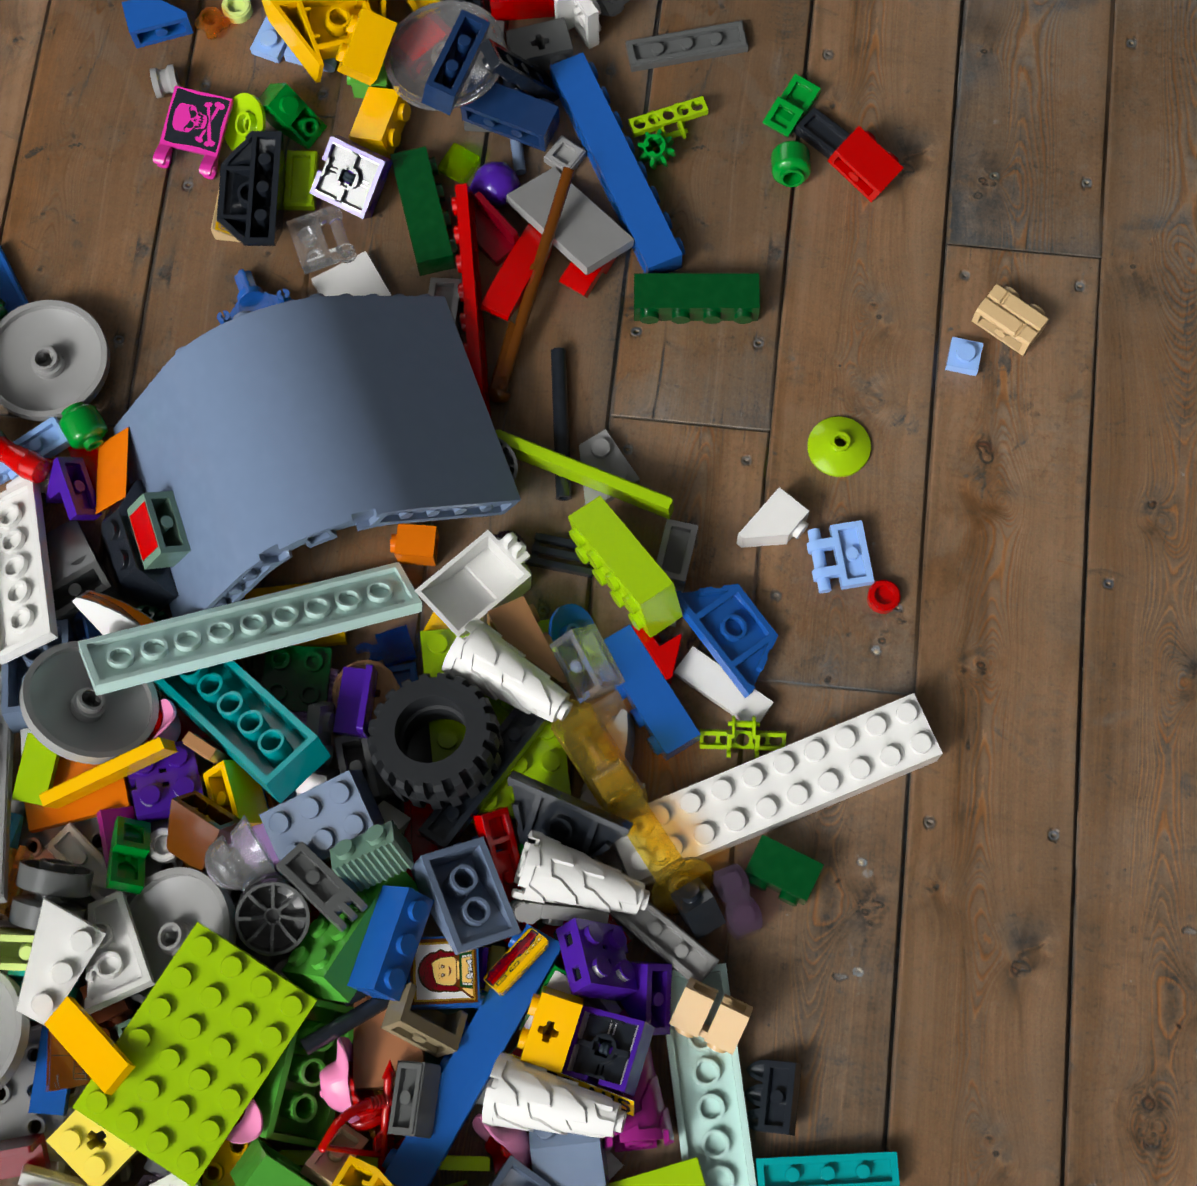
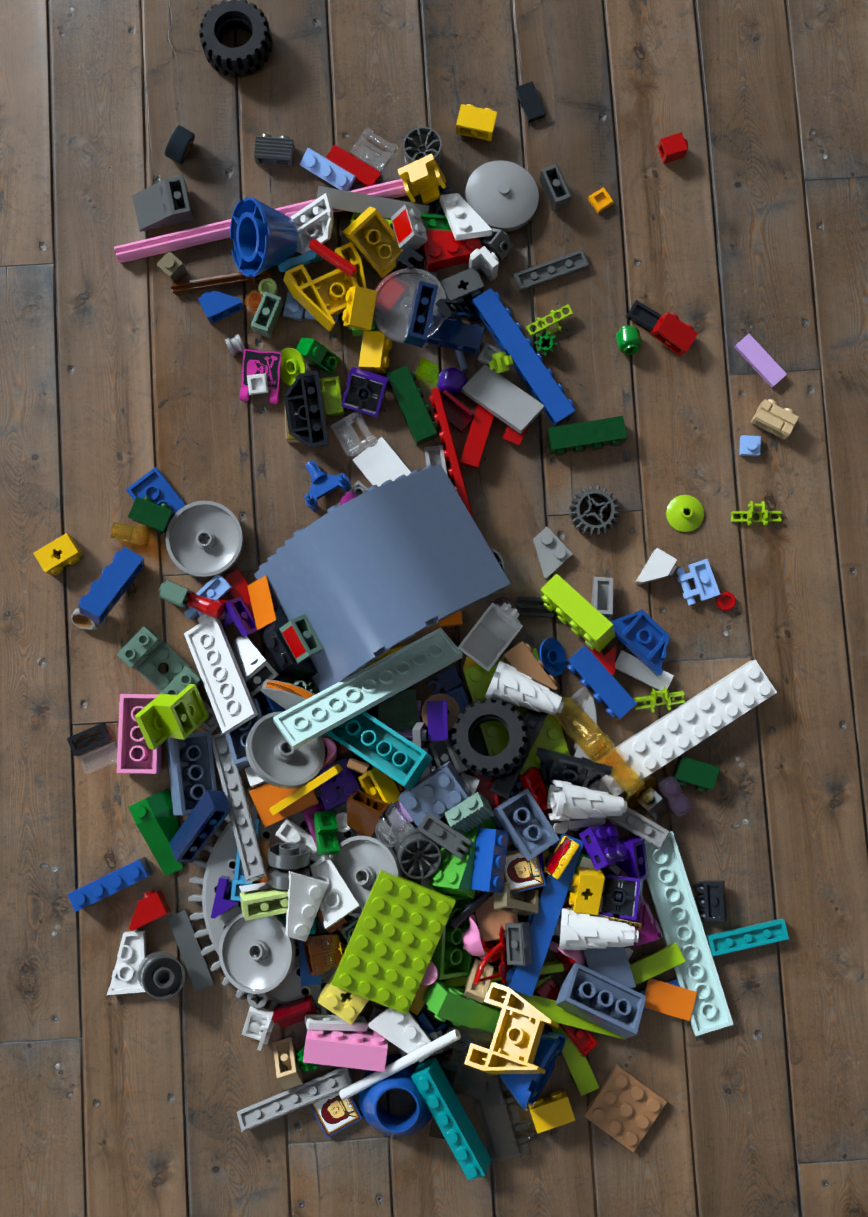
camera: 15 degrees left, 10 degrees up
(35, 771) = (261, 795): lime tile -> none
(83, 426) = (237, 577): green head -> none
(89, 1045) = (334, 950): yellow tile -> none
(185, 141) = (257, 384): none -> white tile
(224, 42) = (267, 315): none -> sand green brick
(515, 332) = (483, 476): reddish brown bar -> none
(560, 417) = (519, 526): black piece -> none
(578, 160) = (500, 362): none -> lime gear
(587, 663) = (566, 674): clear brick -> none
(589, 476) = (544, 559): lime tile -> none
(699, 411) = (608, 503): none -> dark grey gear
(727, 1024) = (666, 866): tan piece -> none
(792, 106) = (622, 301): green slope -> none
(947, 463) = (766, 514): none -> lime piece
(1002, 228) = (760, 360): none -> lavender tile

